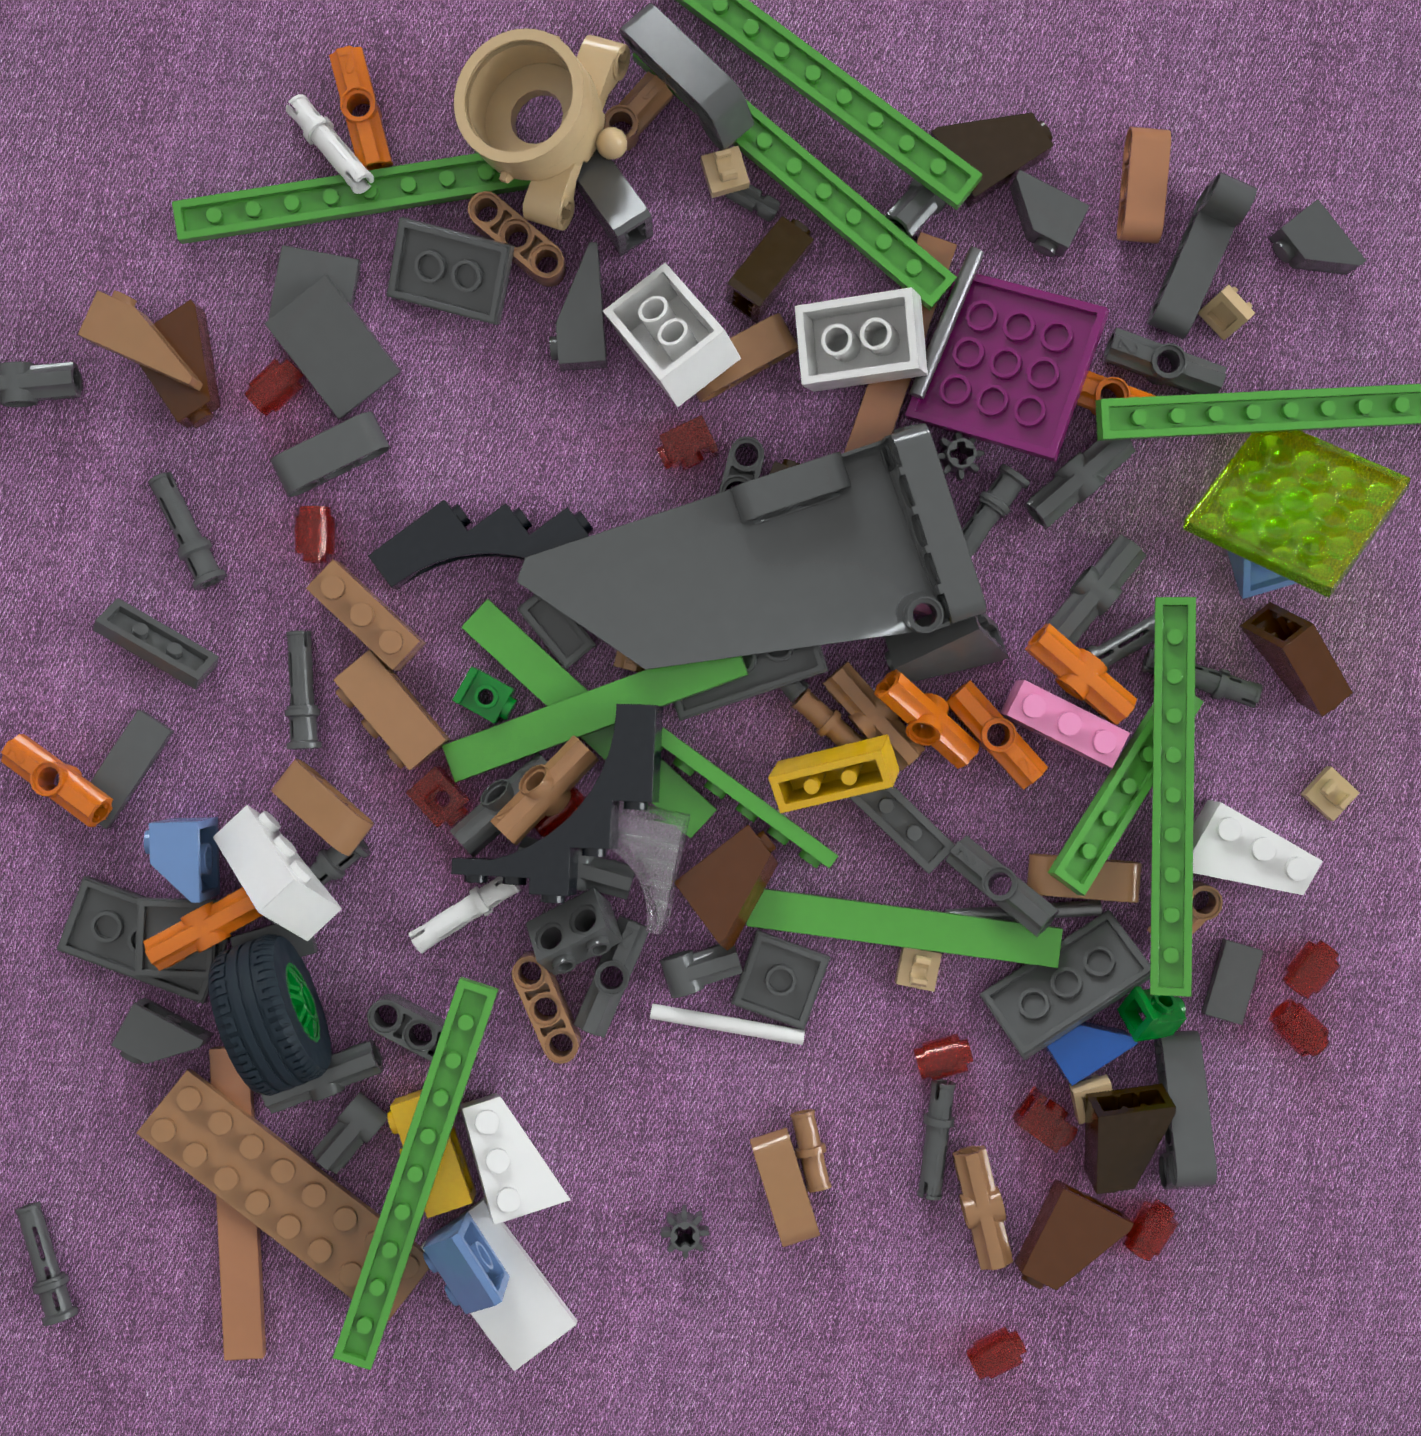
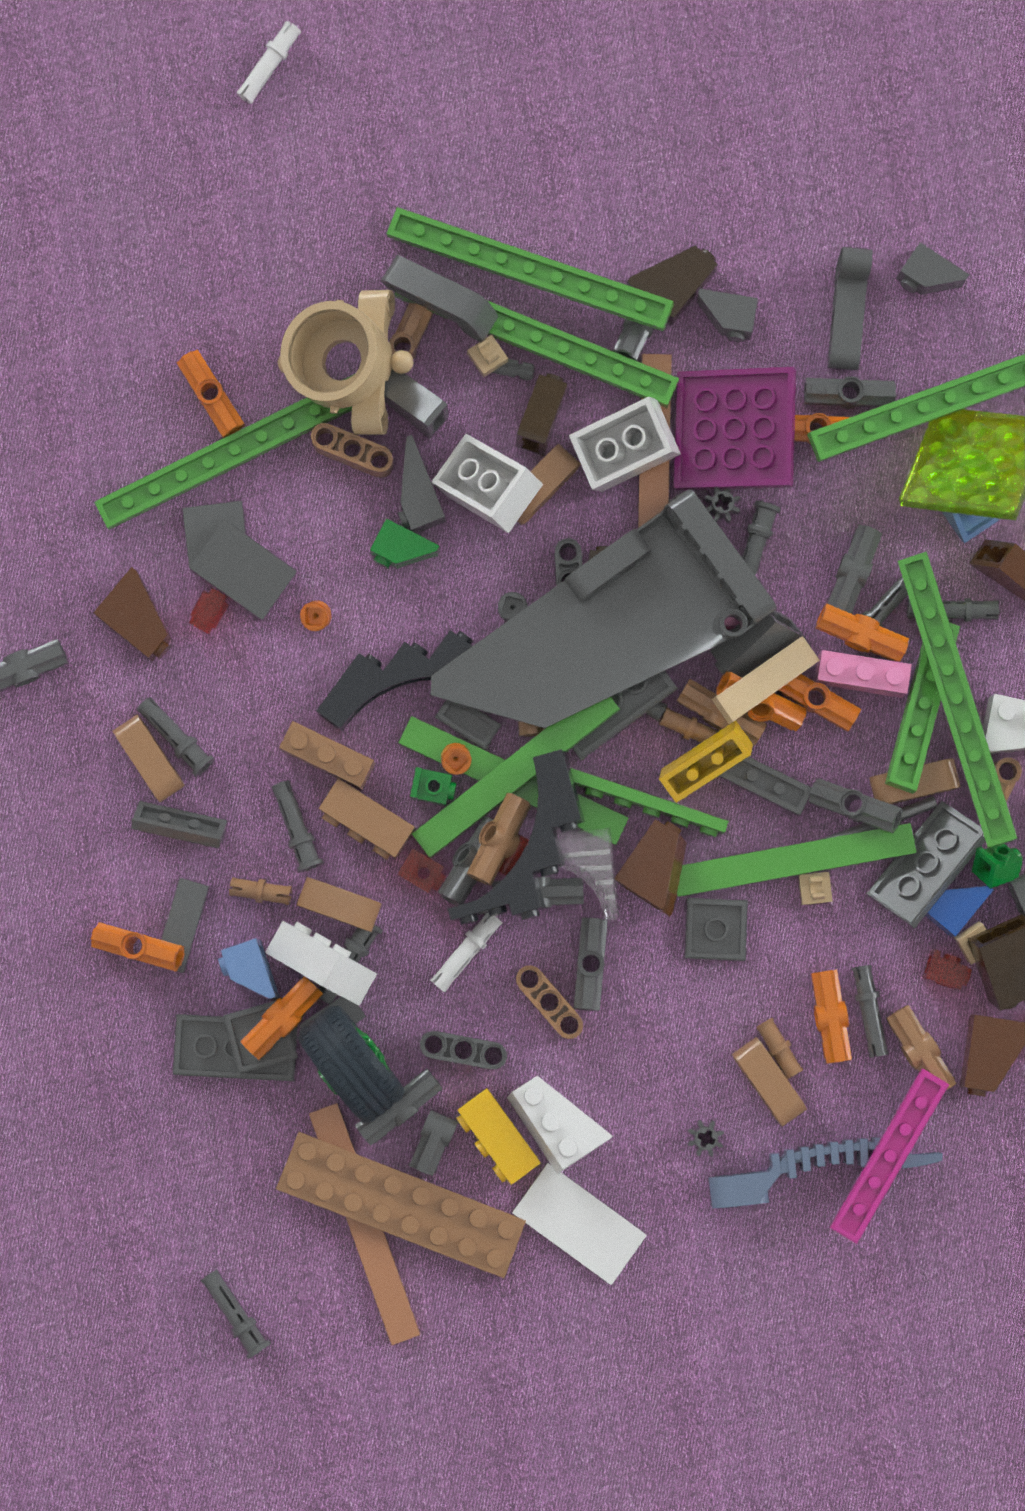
camera: 20 degrees left, 5 degrees down
(126, 331) = (96, 604): medium nougat slope -> none
(143, 548) = (148, 758): none -> medium nougat beam
(157, 1033) = (266, 1114): dark grey slope -> none
(233, 757) = (260, 891): none -> medium nougat pin
(314, 533) = (270, 708): clear red brick -> none
(321, 133) = (187, 419): white pin -> none
(330, 454) = (264, 647): dark grey beam -> none
(407, 434) = (315, 615): none -> orange tile
(415, 1173) = (492, 1151): bright green plate -> none
(450, 270) = (311, 488): dark grey tile -> none
(466, 1264) = (550, 1210): medium blue slope -> none
(524, 670) = (456, 758): none -> orange tile
(540, 381) = (401, 547): none -> green slope
(571, 927) = (552, 938): dark grey brick -> none
(655, 498) = (510, 605): none -> dark grey tile
(686, 444) = (521, 559): clear red brick -> none
(690, 971) = (648, 941): dark grey piece -> none
(722, 1307) = (753, 1187): none -> sand blue piece
(727, 1024) = (687, 974): white bar -> none
(886, 1131) = (831, 1016): none -> orange piece
(901, 1328) = (889, 1156): none -> dark pink tile
(941, 697) = (765, 680): none -> tan tile
(943, 1057) = (855, 947): clear red brick -> none
(948, 320) = (682, 410): flat silver bar -> none
(996, 1353) = (967, 1156): clear red brick -> none
(1078, 480) = (814, 495): dark grey piece -> none
(1143, 185) = (792, 270): nougat beam -> none
(1226, 312) = (882, 341): tan tile -> none

